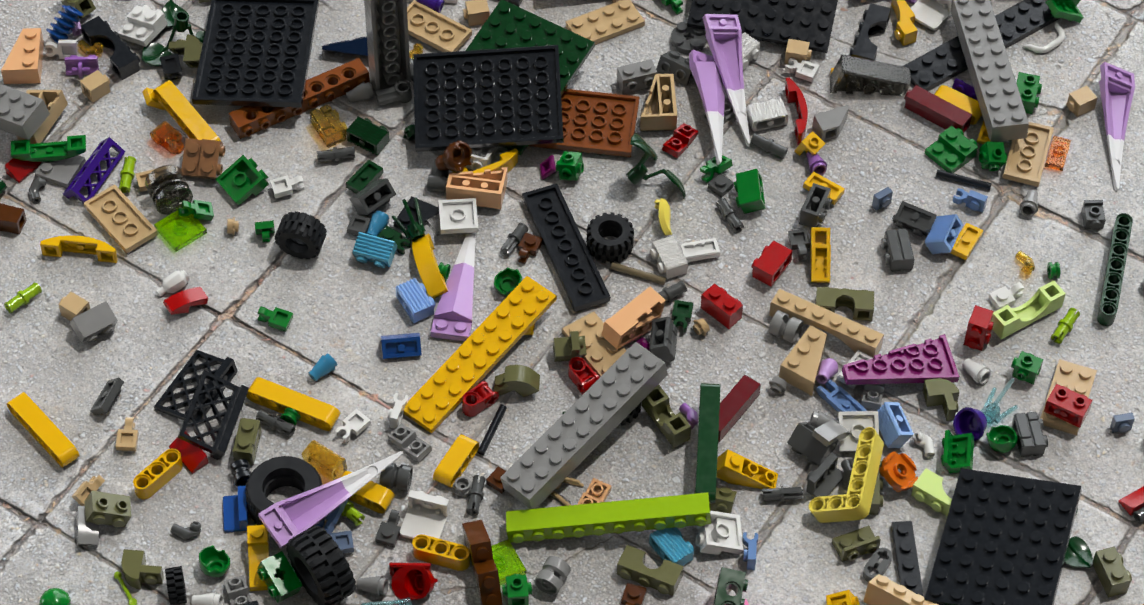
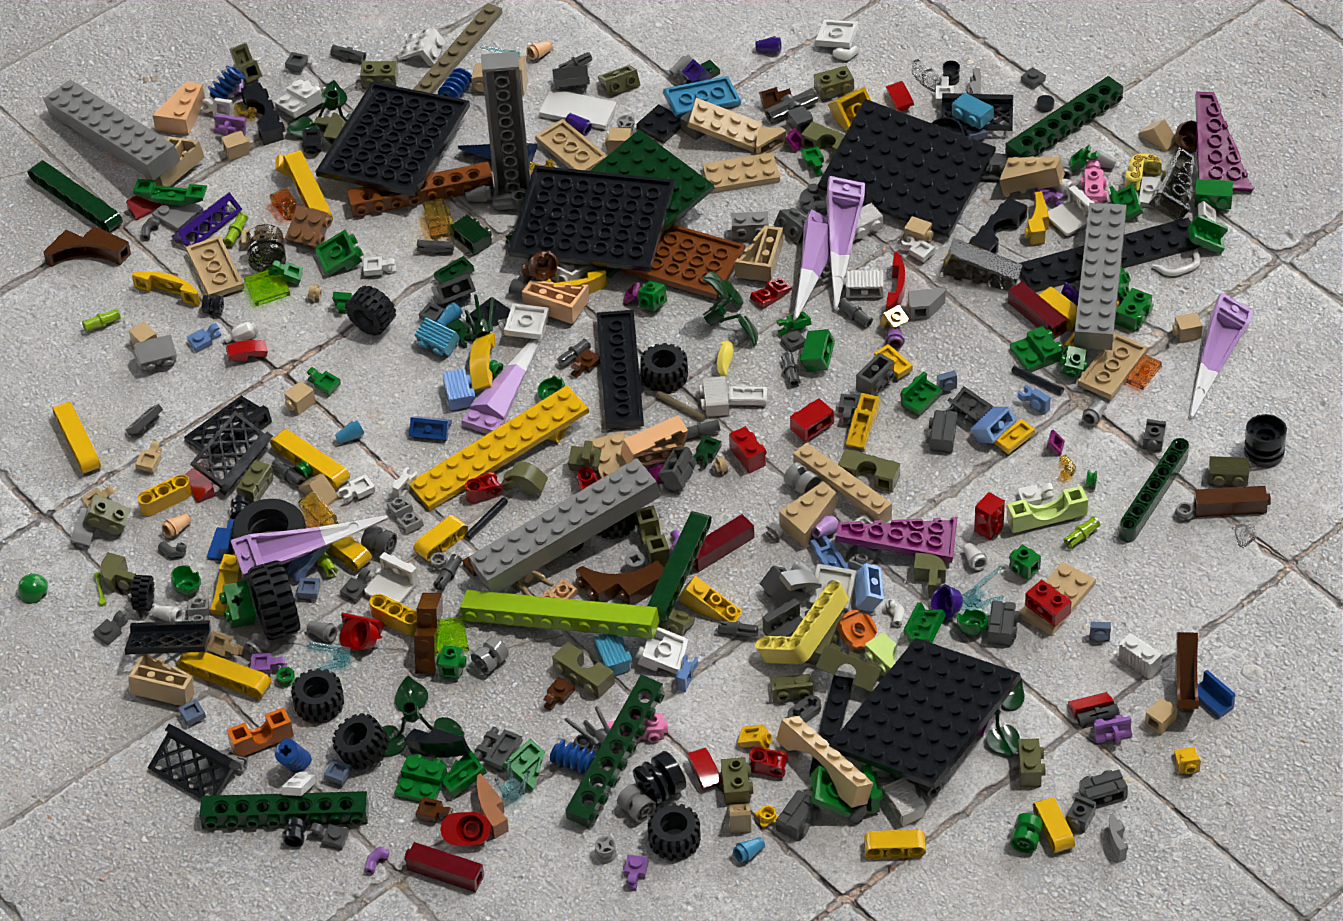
camera: 20 degrees right, 5 degrees down
(134, 298) = (200, 339): none -> medium blue plate
(137, 258) = (212, 304): none -> black wheel
(180, 504) = (175, 525): none -> light nougat cone
(258, 341) = (299, 398): none -> tan brick
(313, 430) = (322, 487): none -> tan slope
(654, 450) = (636, 557): none -> light grey wheel
(661, 472) = (629, 586): none -> reddish brown arch
(863, 217) = (919, 394): none -> green bracket
(891, 507) = (866, 672): none -> olive arch
(1005, 240) = (1055, 442): none -> magenta slope

